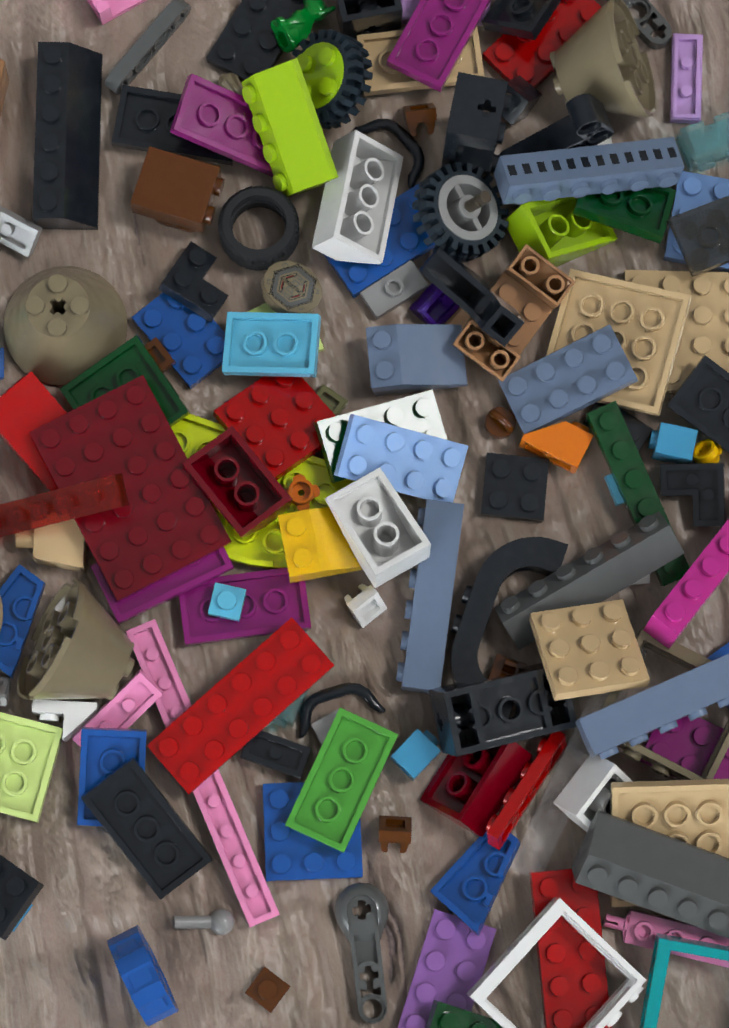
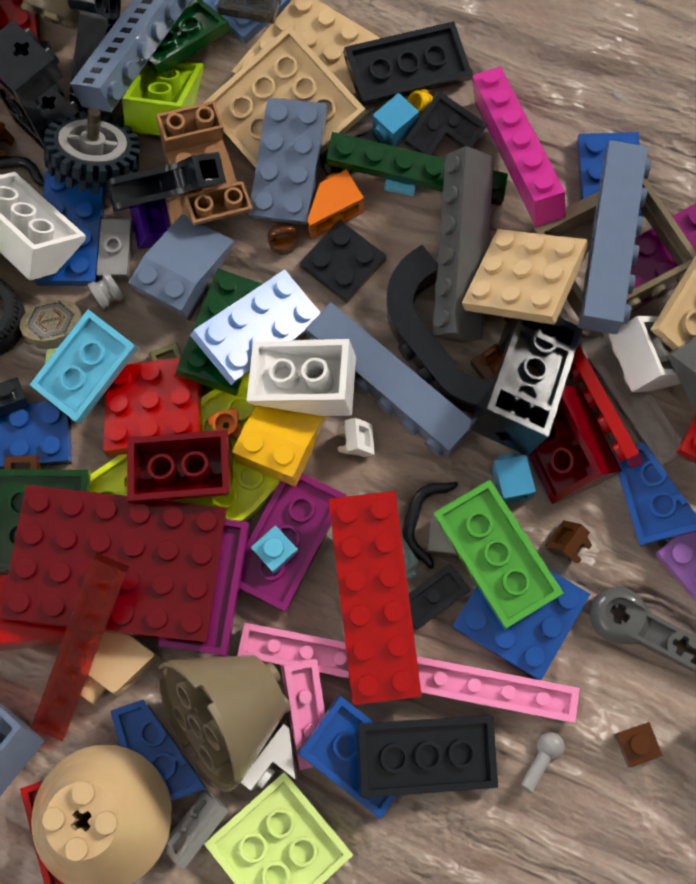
camera: 45 degrees left, 5 degrees down
(142, 976) = (564, 852): blue connector -> none
(350, 311) = (106, 291): none -> light grey wheel

